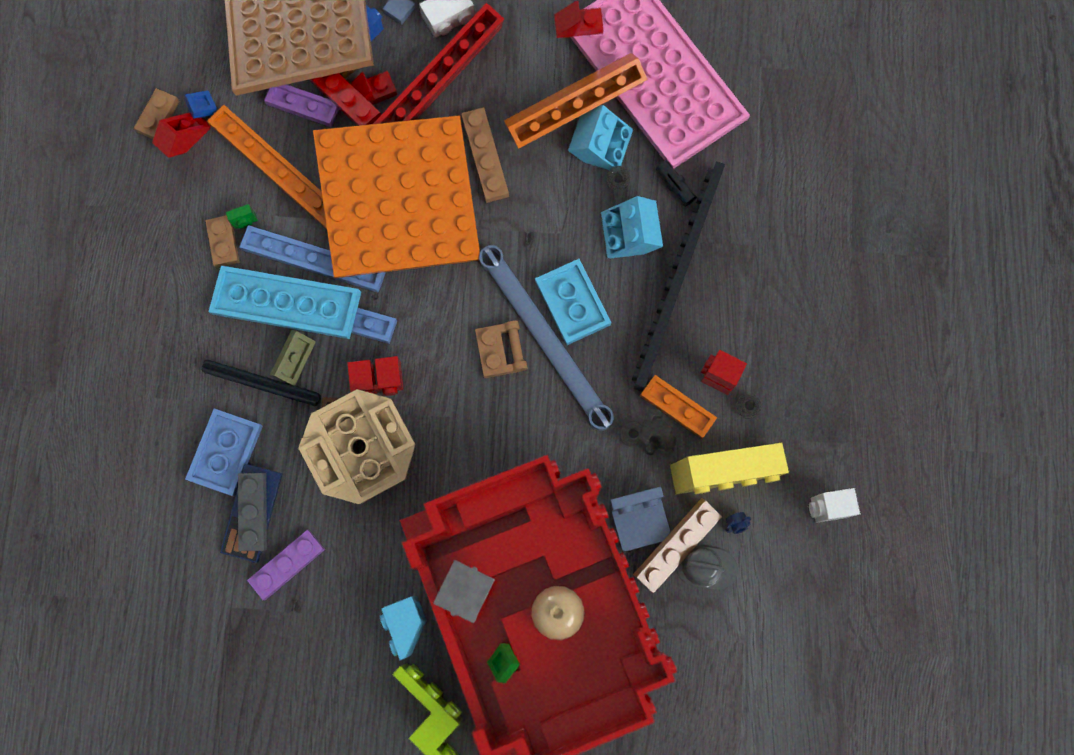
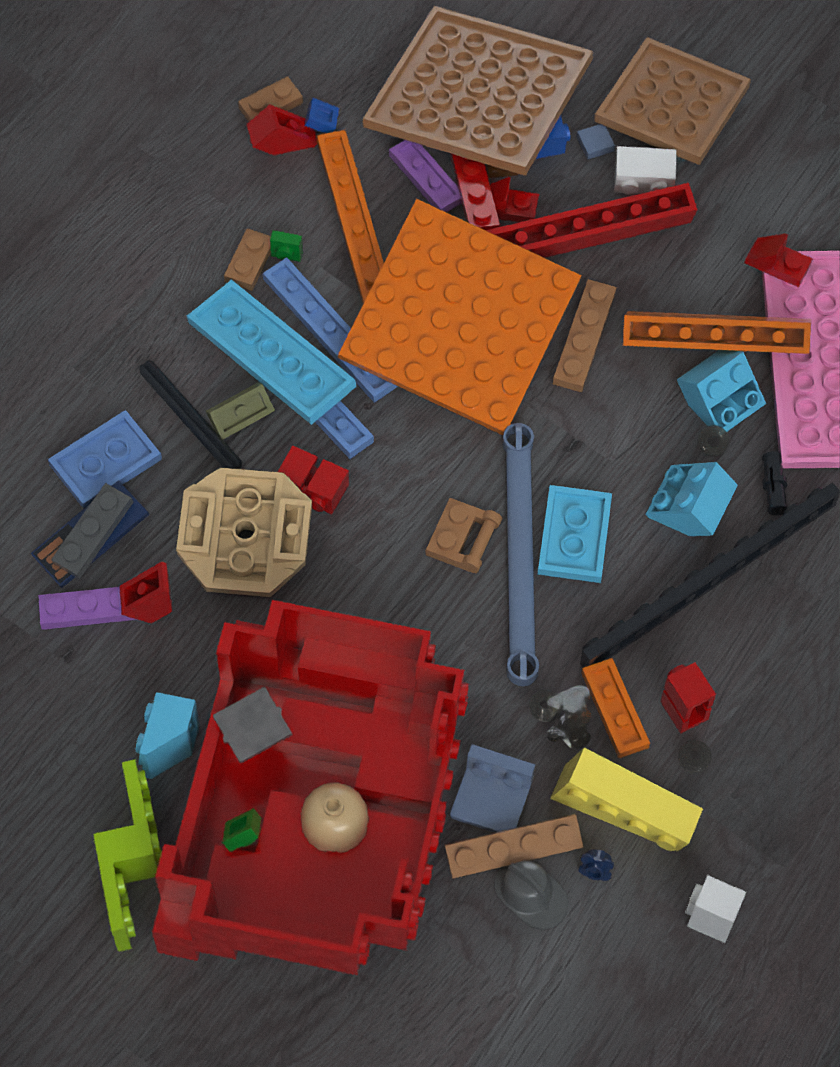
camera: 30 degrees right, 15 degrees down
(322, 535) = (147, 595): none -> red slope

